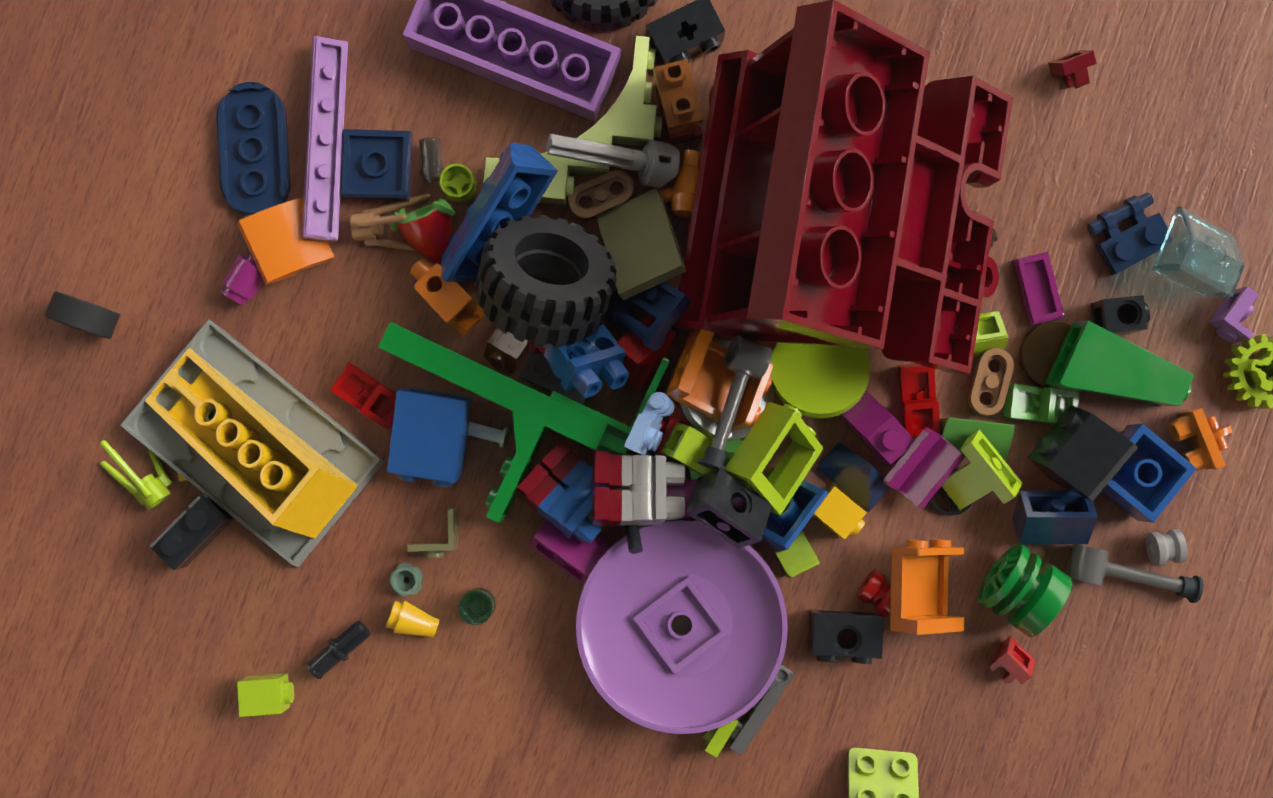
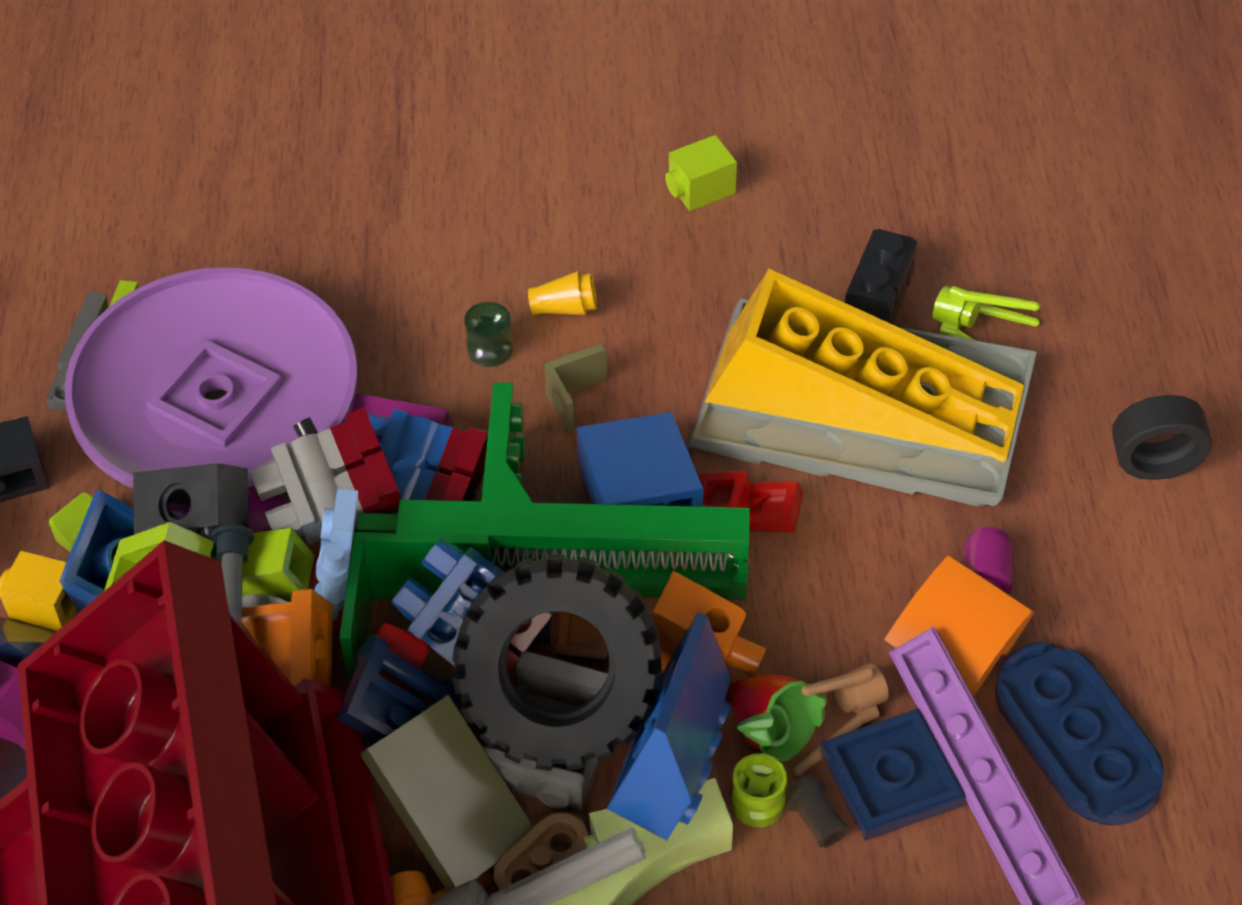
camera: 160 degrees right, 35 degrees down
(338, 649) = (639, 242): black axle -> none
(397, 579) = (592, 329): sand green plate -> none

